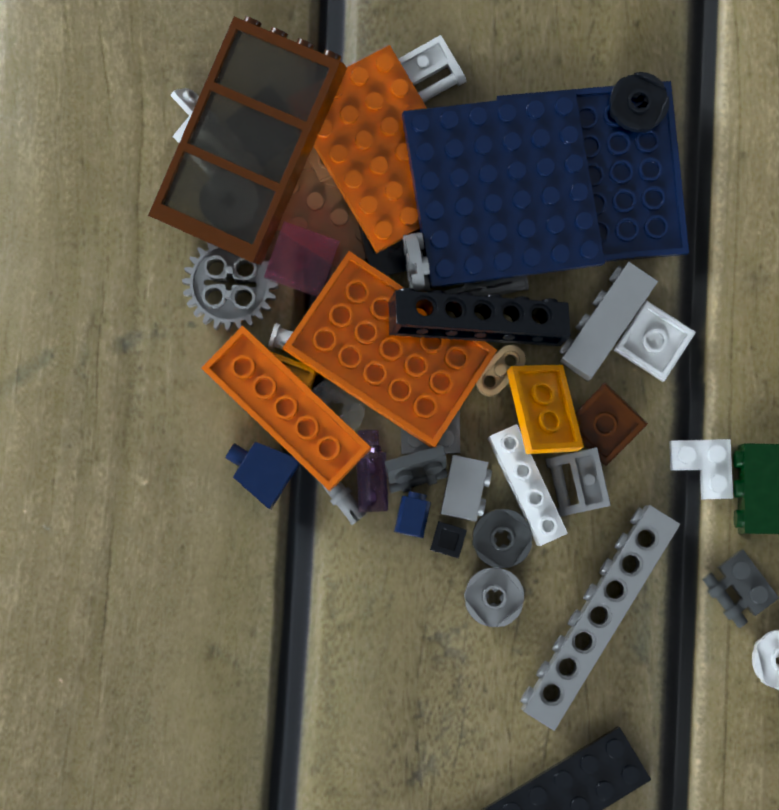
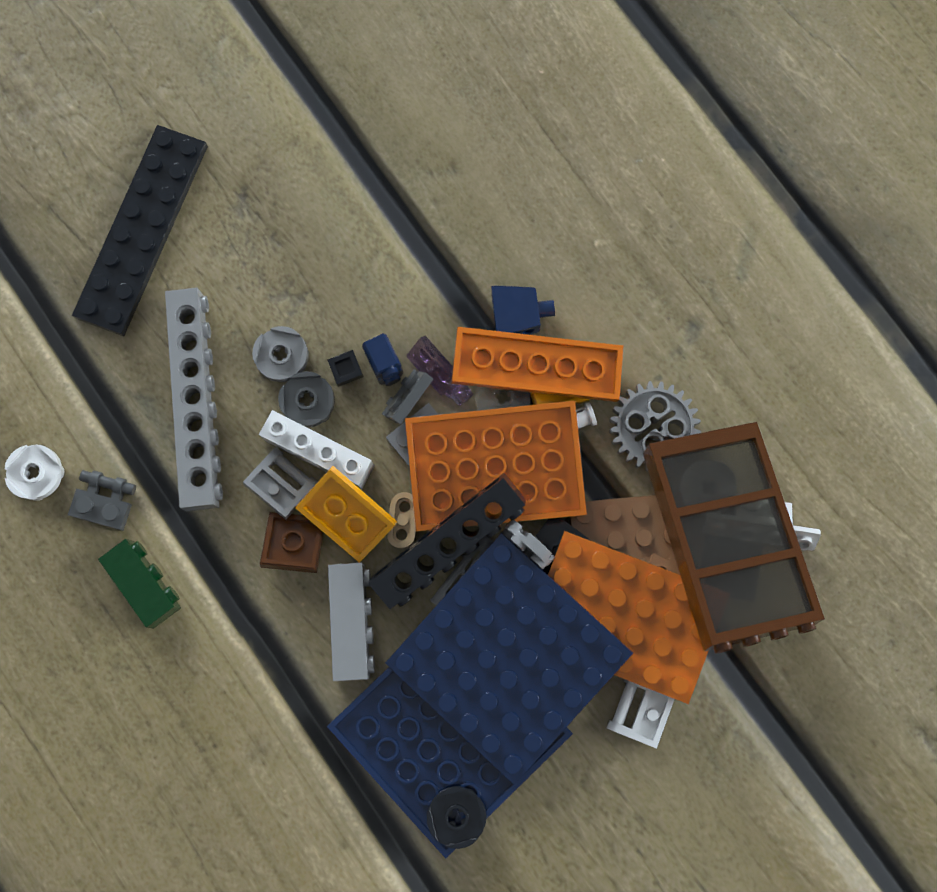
camera: 150 degrees right, 5 degrees down
(301, 259) = (616, 483): clear pink plate -> none
(344, 500) = (440, 337): light grey pin -> none
(465, 488) = (361, 412): light grey brick -> none
(654, 341) = (302, 635): white plate -> none
(712, 460) = (194, 580): white plate -> none

